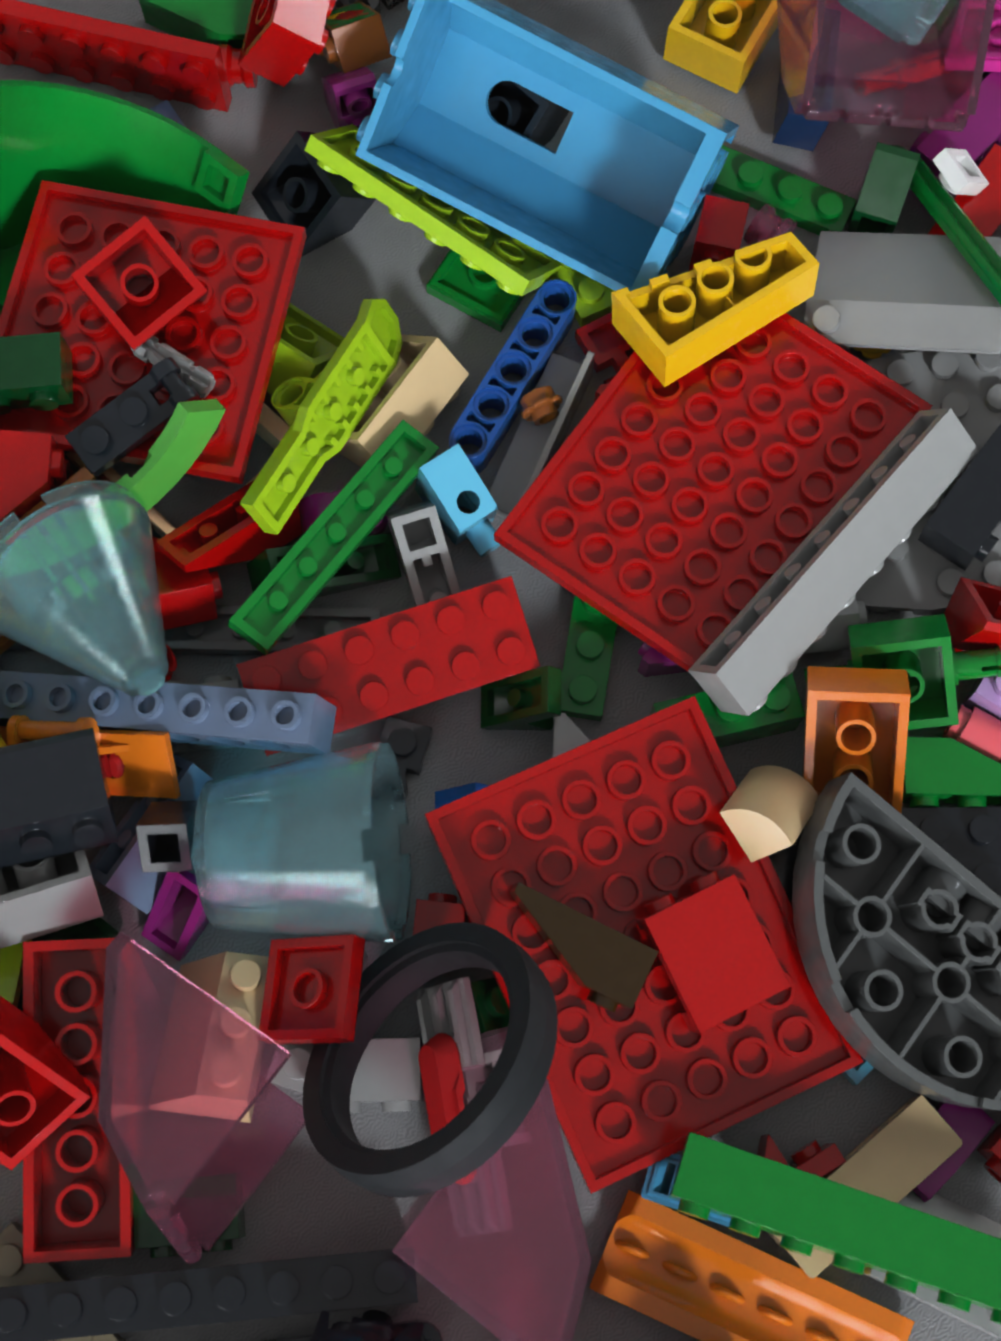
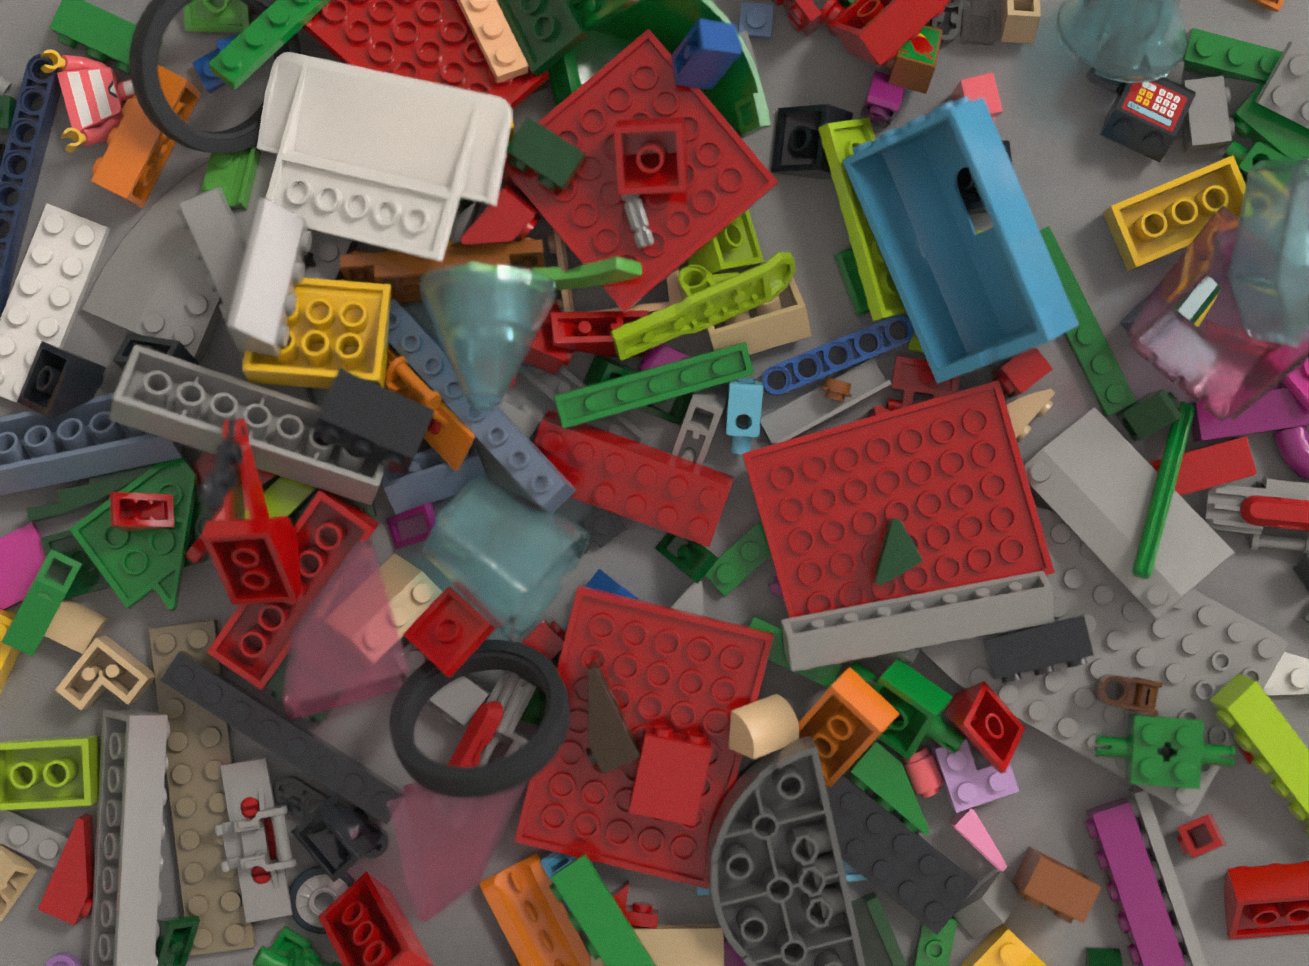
camera: 40 degrees right, 15 degrees up
(121, 147) = (706, 54): none -> blue brick
(130, 418) = (588, 232): black plate -> none
(167, 836) = (435, 491): black brick -> none
(705, 311) = (969, 419): yellow wedge -> none
(750, 502) = (896, 554): none -> dark green slope
(768, 225) = (1066, 381): clear pink wheel -> none
(835, 47) = (1199, 301): none -> sticker
(959, 172) = (1202, 442): white plate -> none

